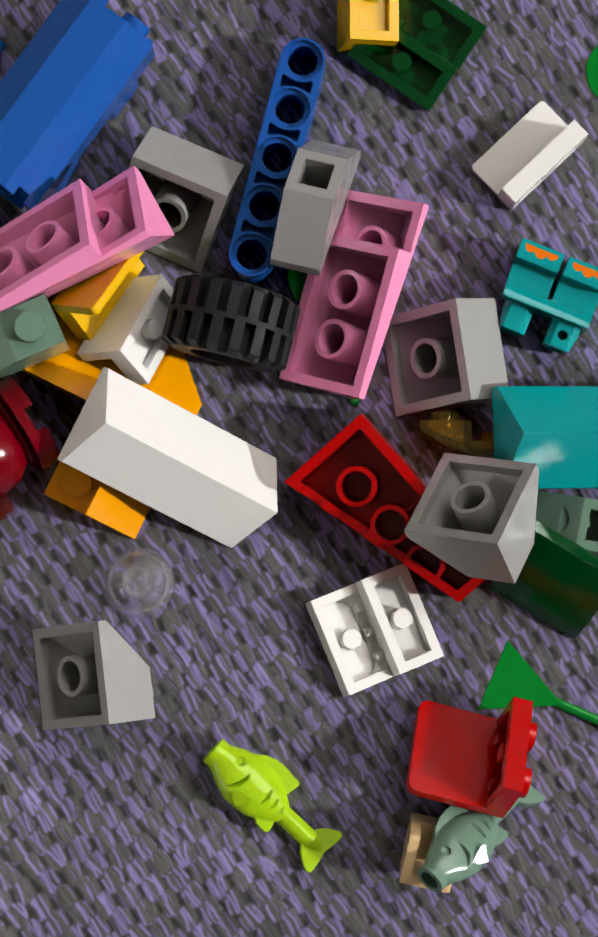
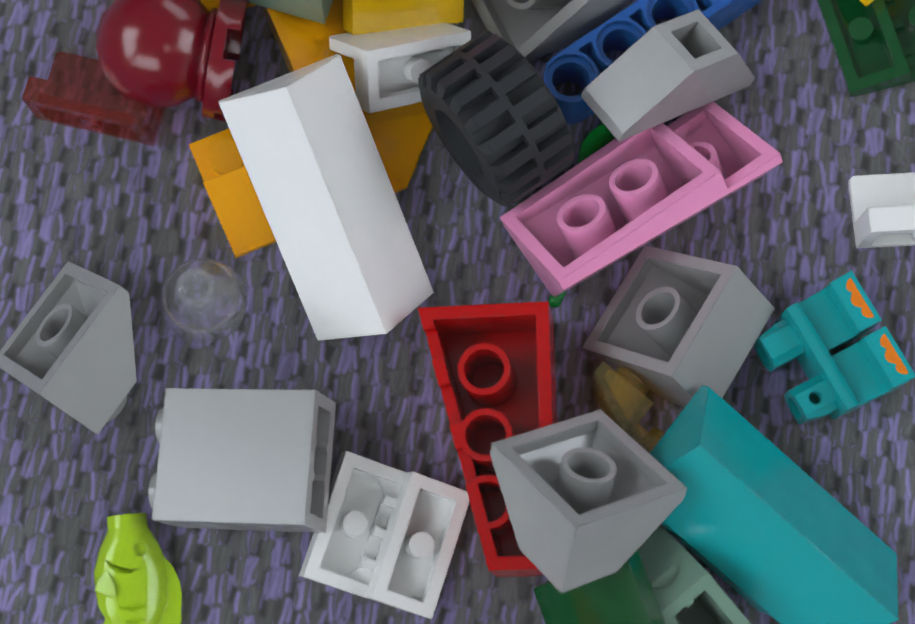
camera: 45 degrees right, 10 degrees down
(256, 659) = (243, 459): none -> light grey brick

